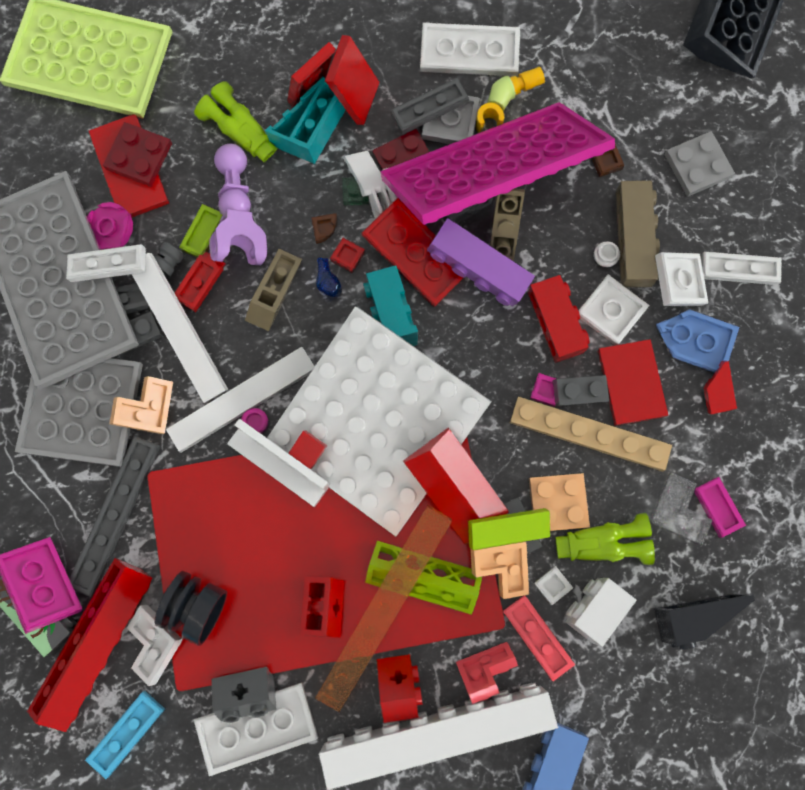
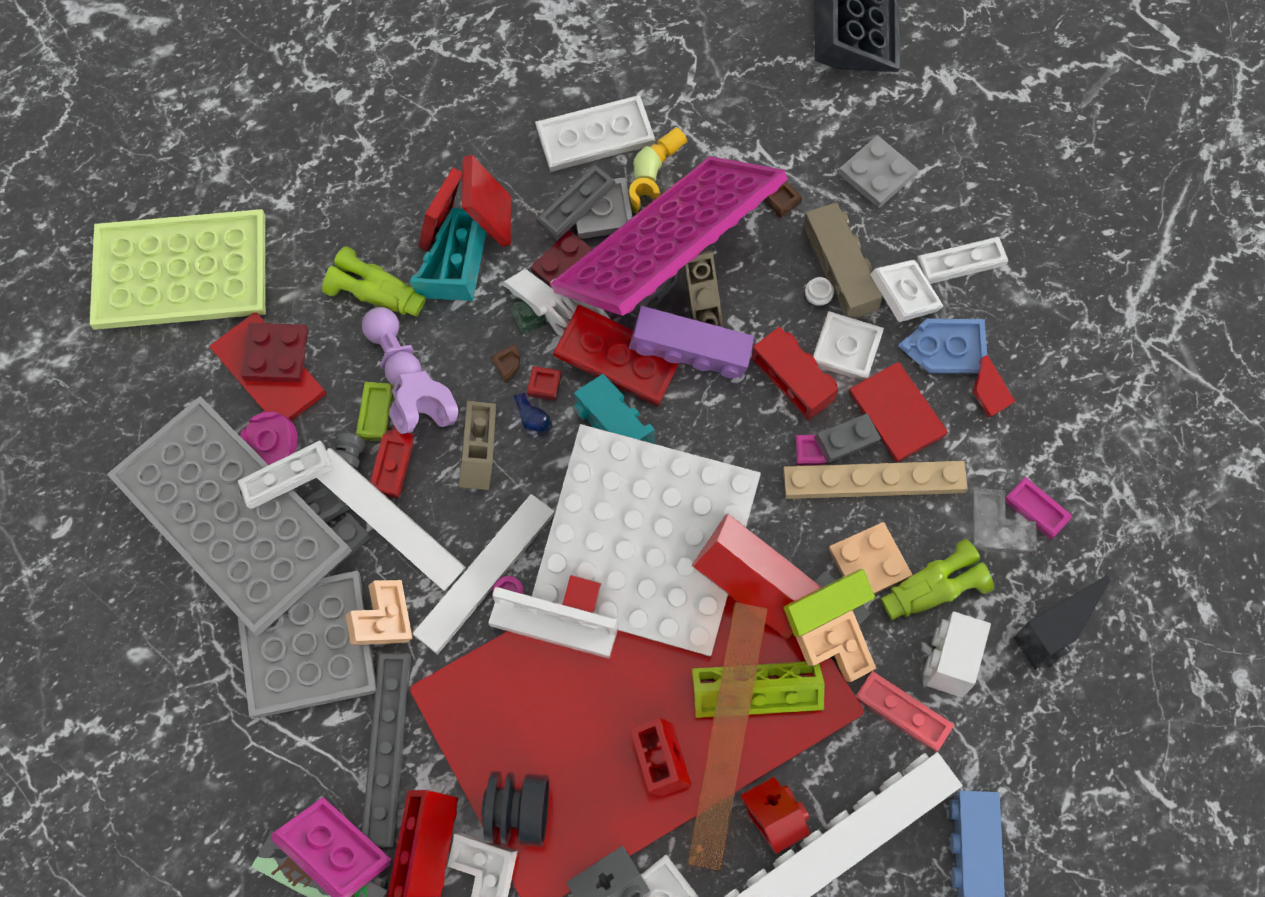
camera: 20 degrees left, 10 degrees down
(480, 668) = (859, 766): coral plate -> none
(553, 585) = (898, 651): white tile -> none

